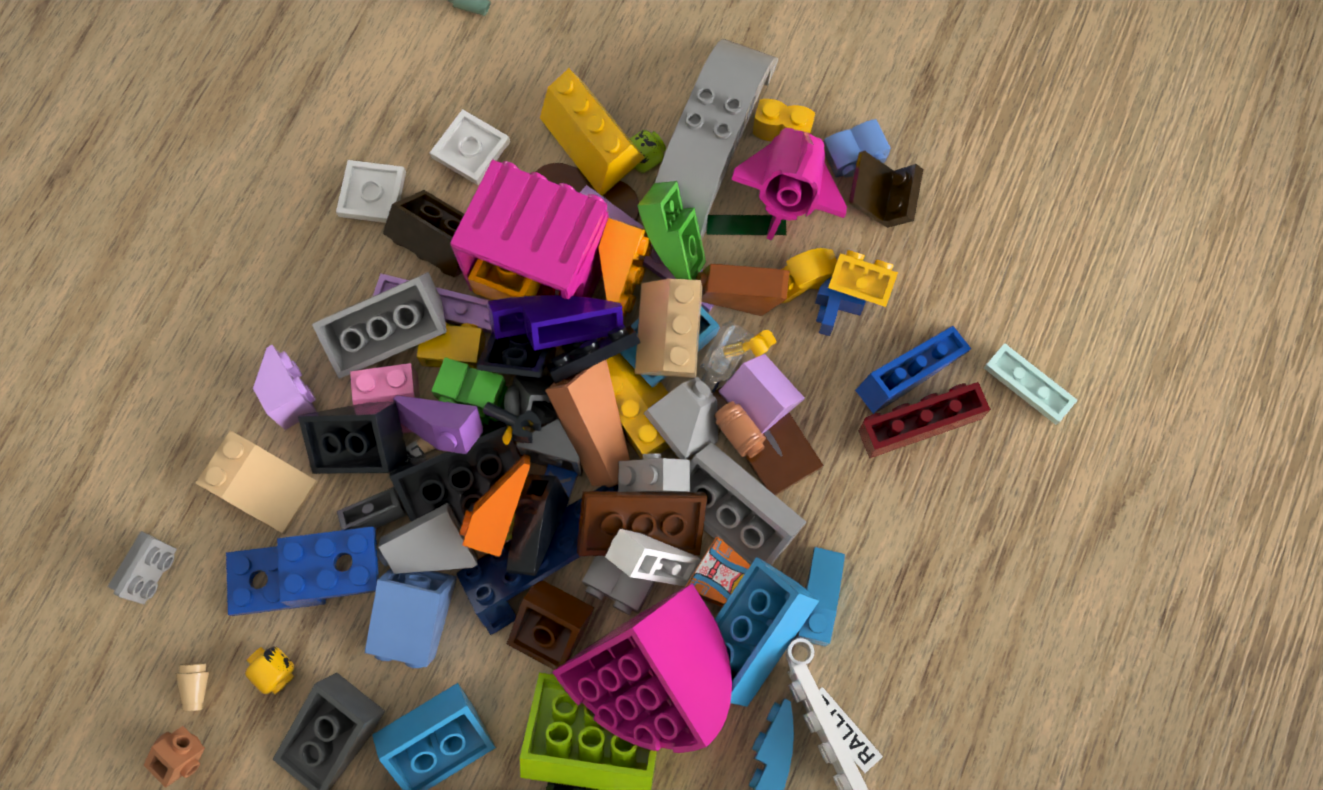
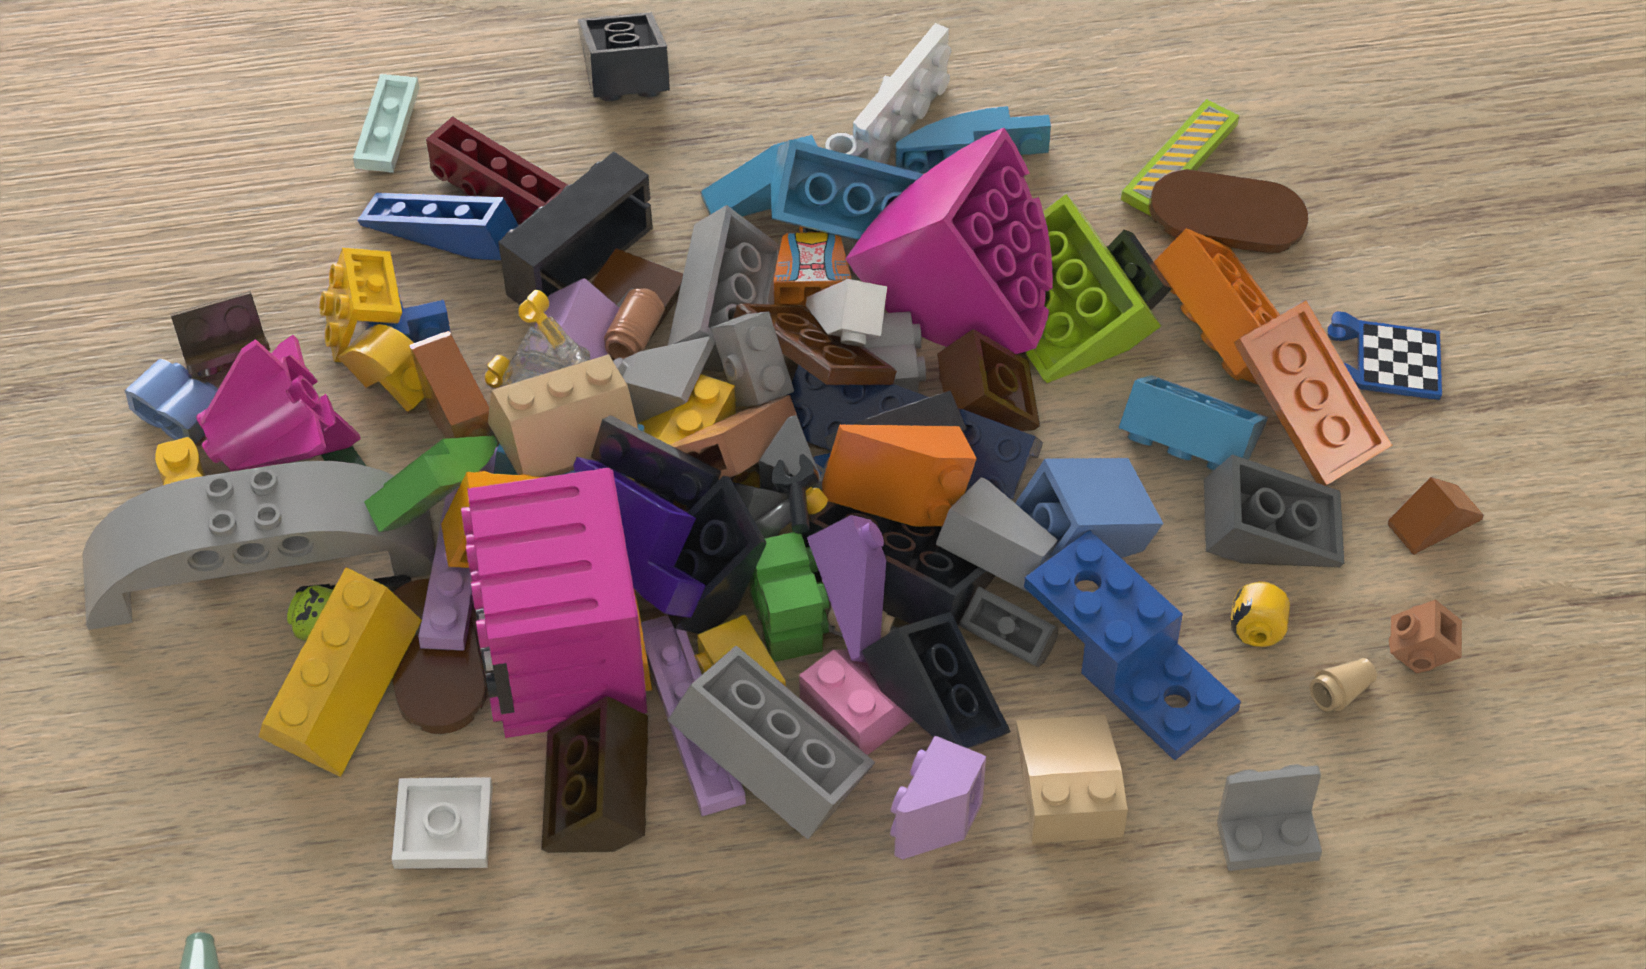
camera: 125 degrees left, 20 degrees down
(370, 190) = (590, 901): white plate -> none
(839, 436) = (577, 229): none -> black piece
(1007, 575) = (624, 56): none -> black slope

